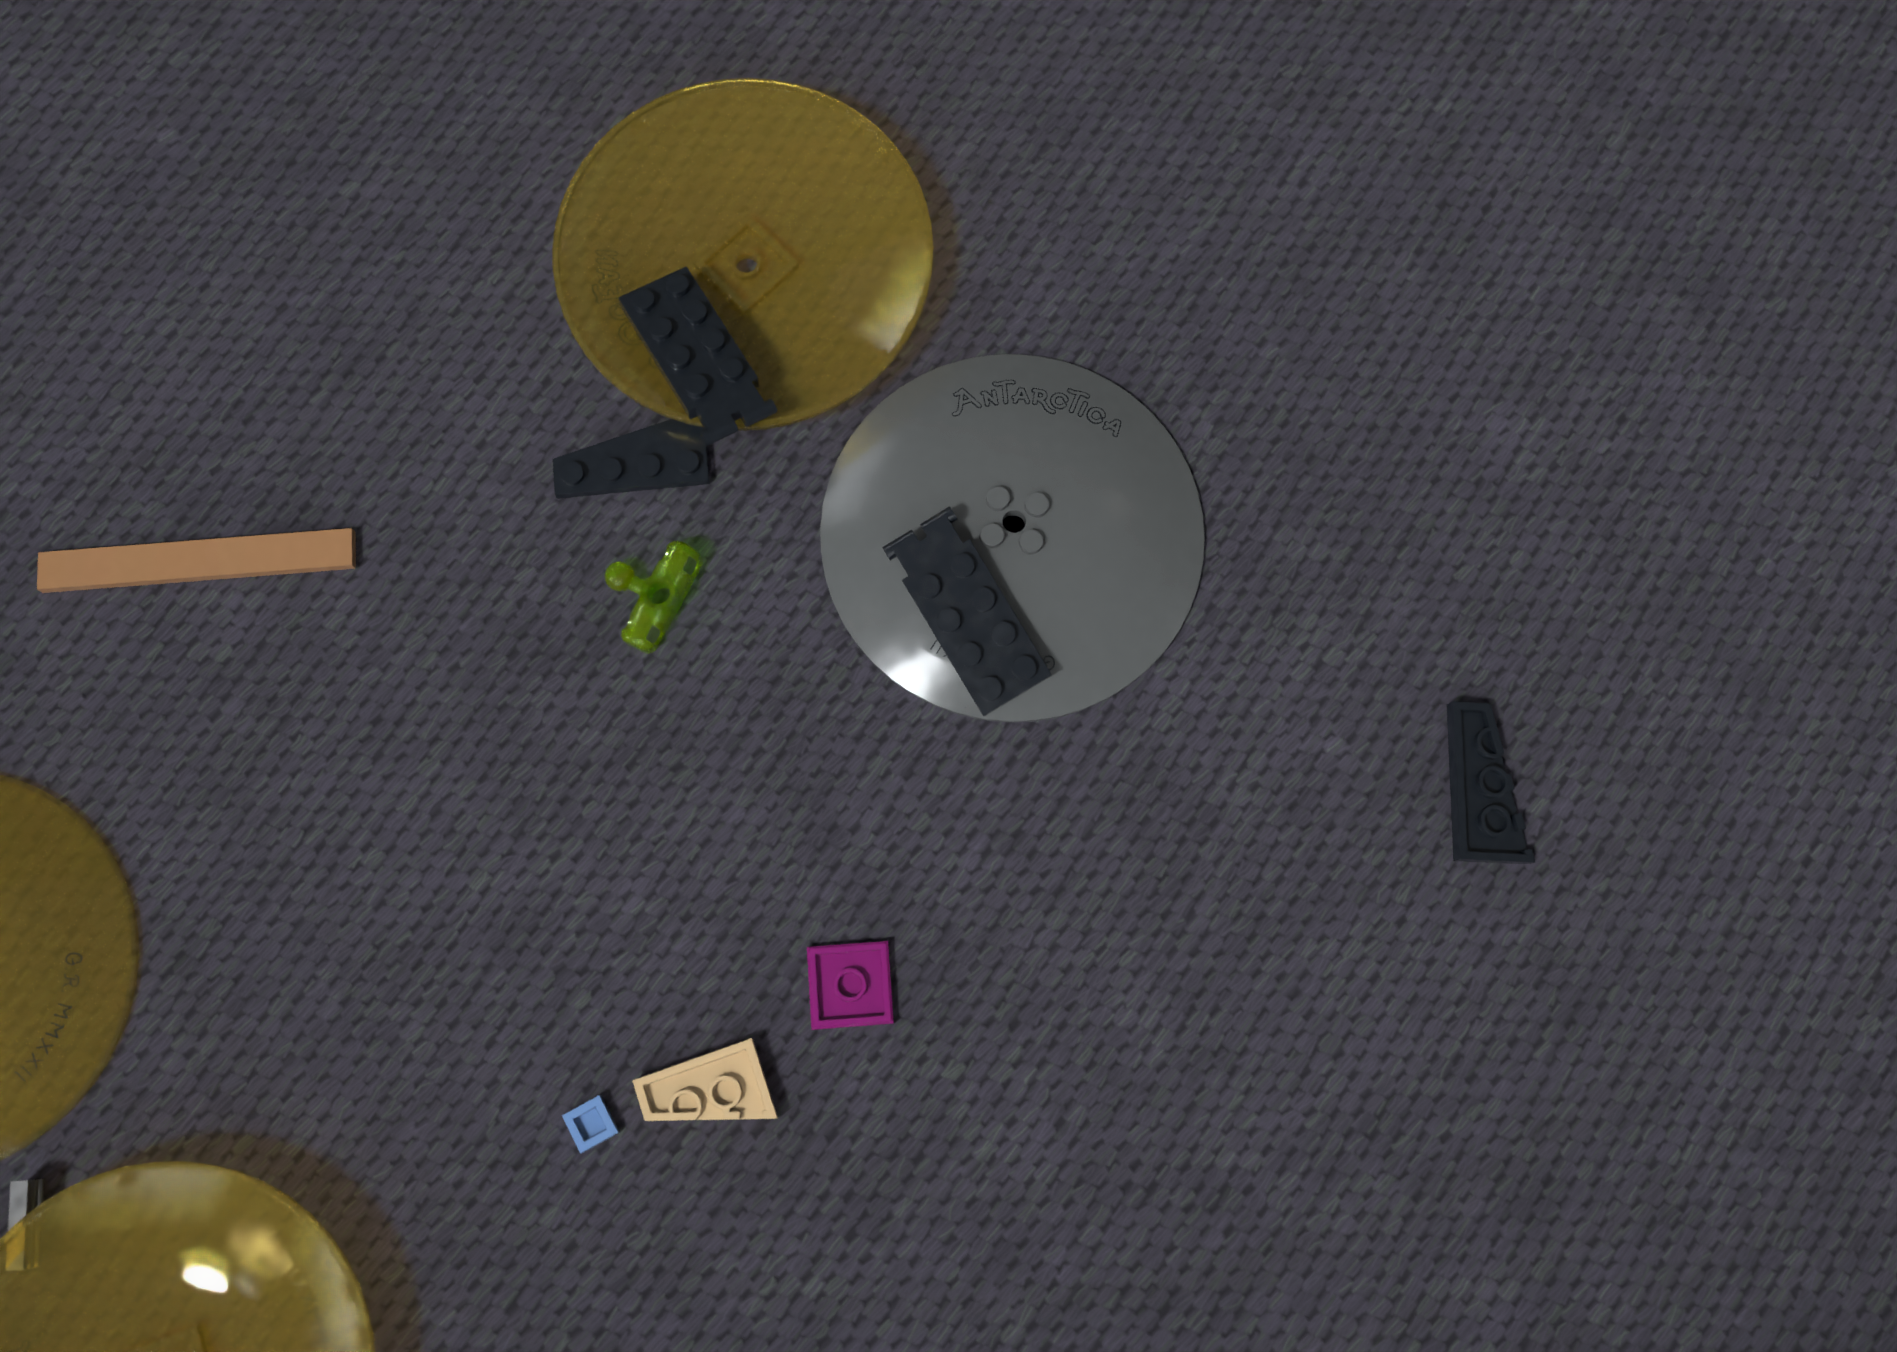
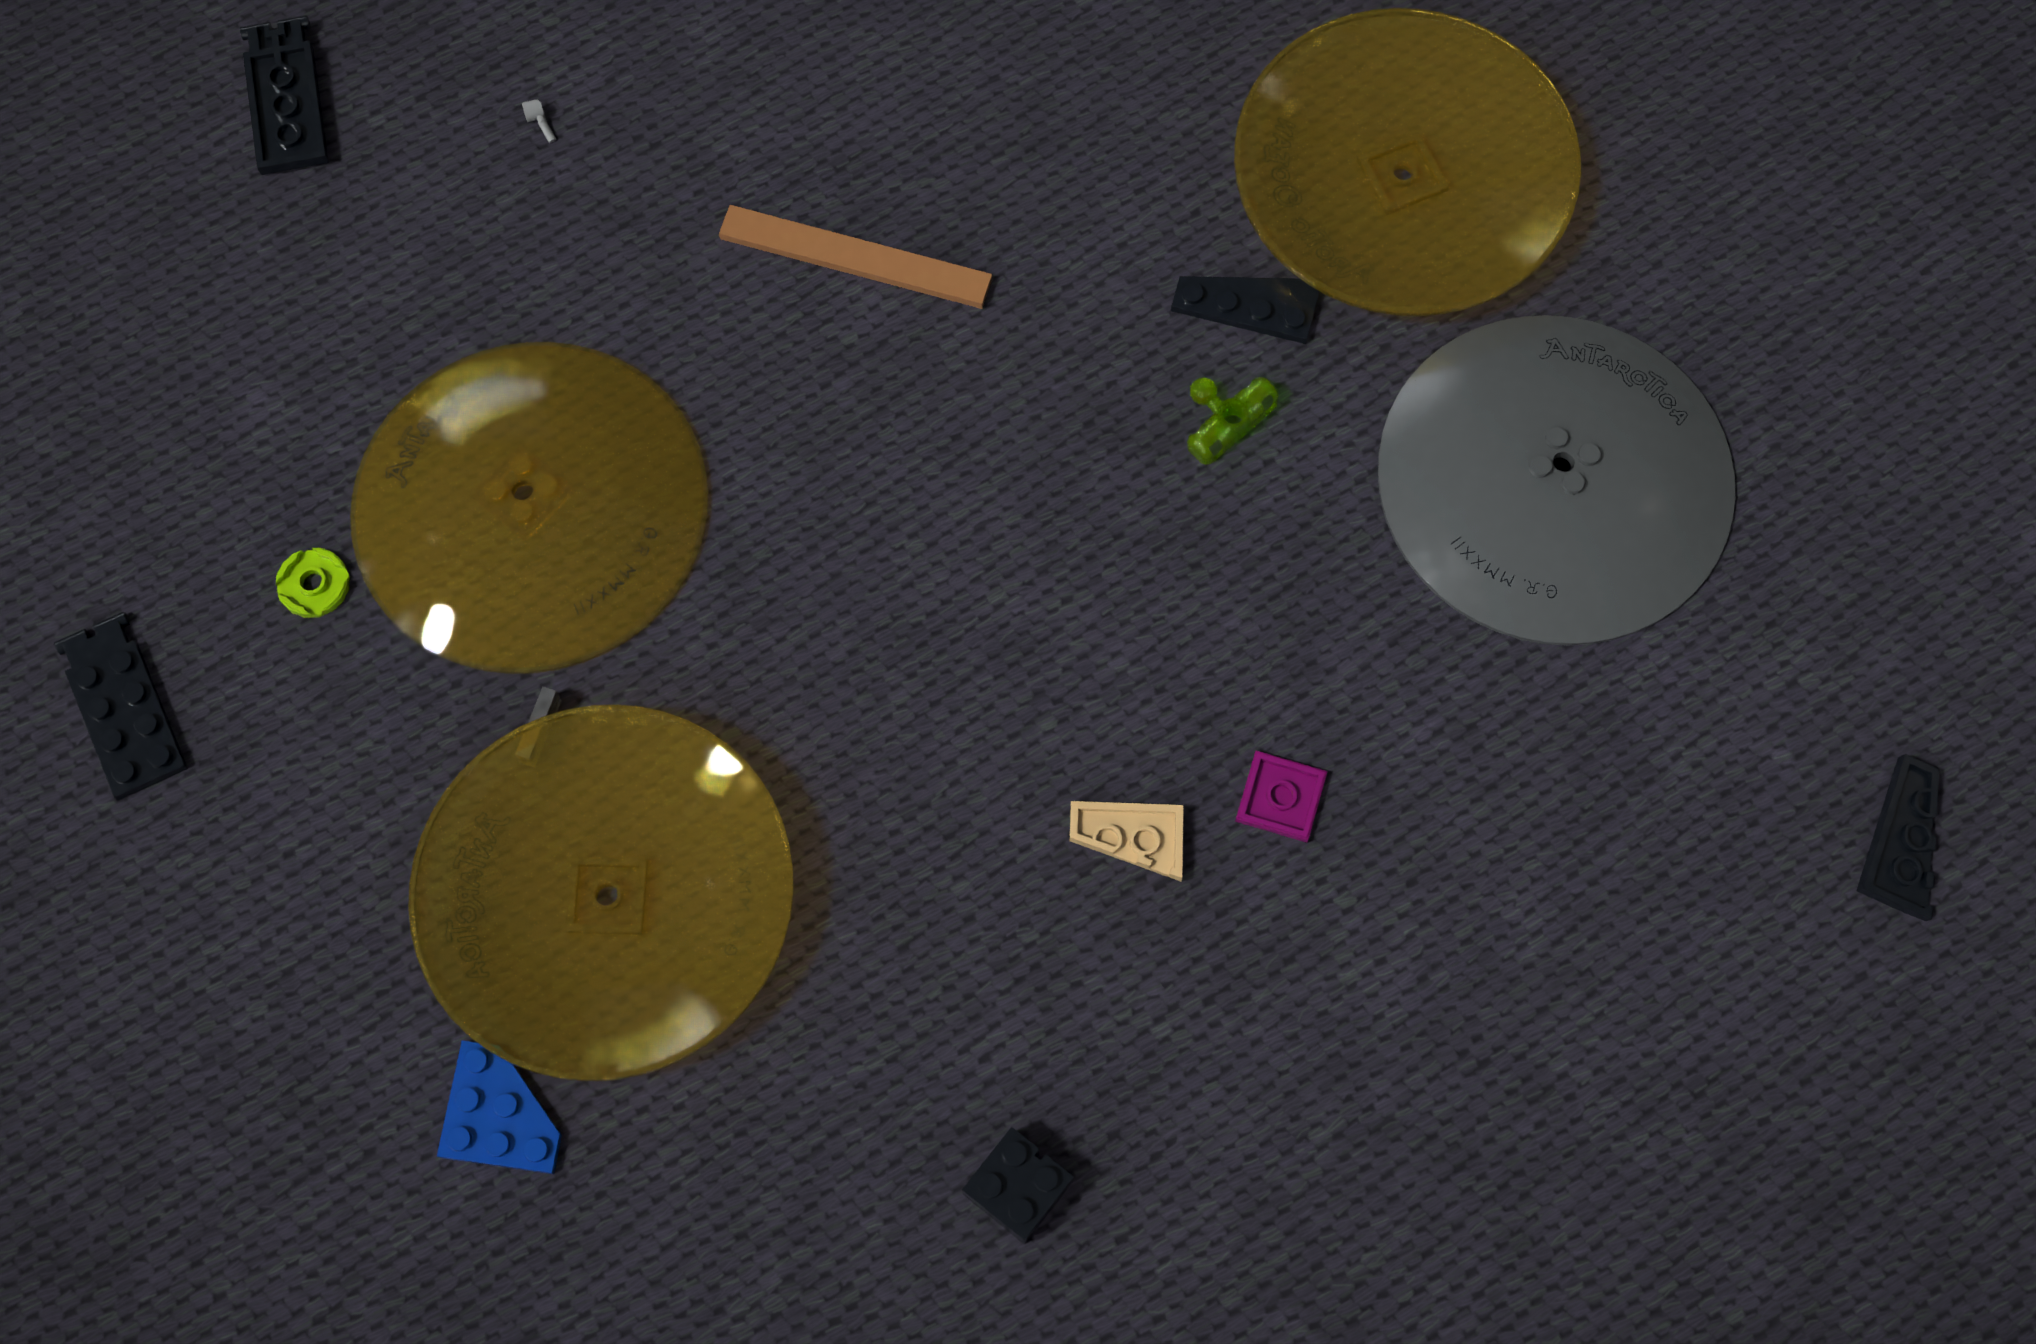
camera: 25 degrees right, 5 degrees down
(590, 1124) = (1021, 825): medium blue tile -> none
(696, 354) = (1337, 229): black hinge -> none
(968, 613) = (1496, 524): black hinge -> none

